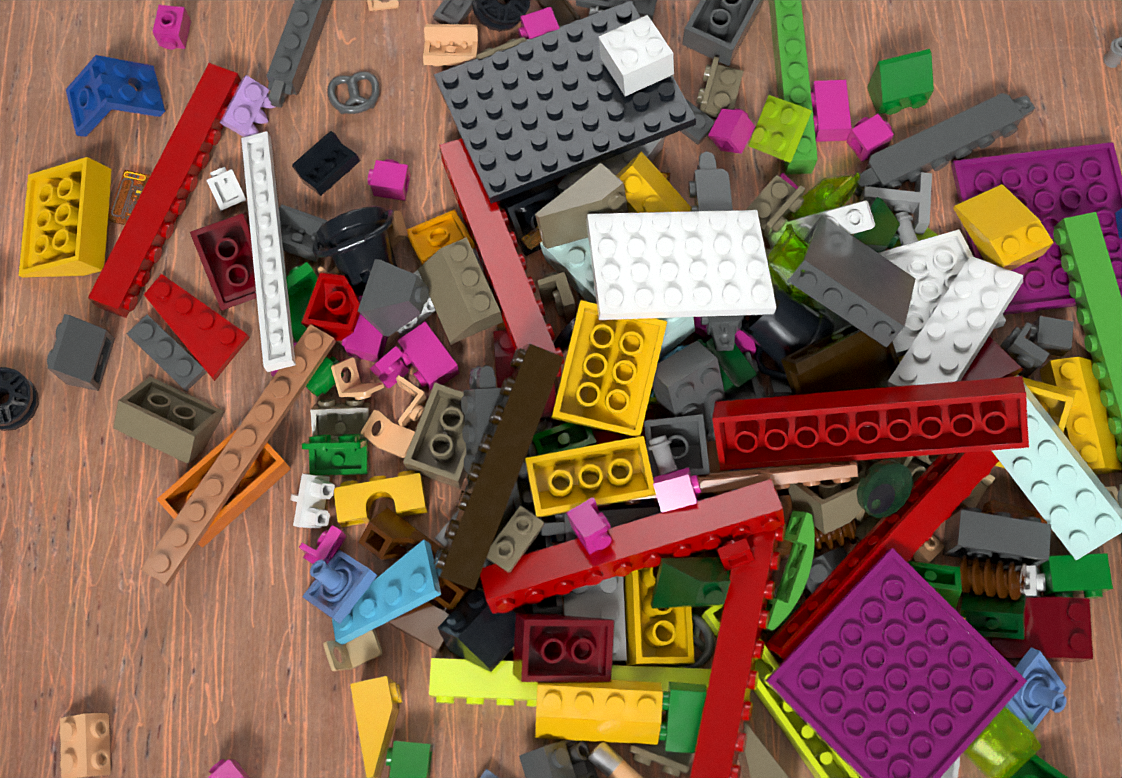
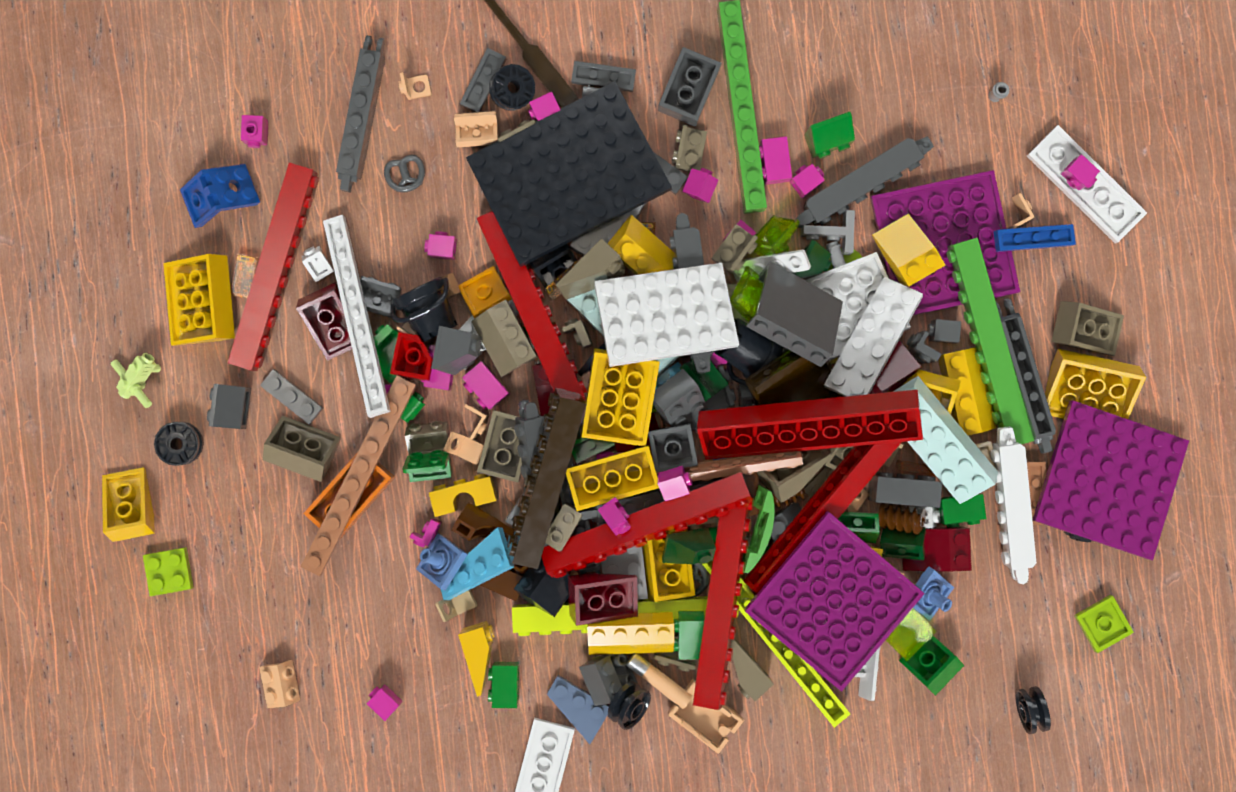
camera: 10 degrees left, 15 degrees up
(201, 329) = (315, 377): red wing -> none
(246, 107) = (324, 196): lavender plate -> none
(312, 500) = (413, 502): white hips -> none
(325, 163) = (391, 237): black bracket -> none
(353, 387) = (434, 414): light nougat bracket -> none
(390, 367) = (458, 396): dark pink bracket -> none
(636, 55) = (622, 138): white brick -> none
(662, 454) = (663, 456): light grey pin -> none
(735, 553) = (718, 526): red plate -> none
(780, 128) = (737, 183): lime plate -> none
(885, 488) = (823, 468): clear green tile -> none

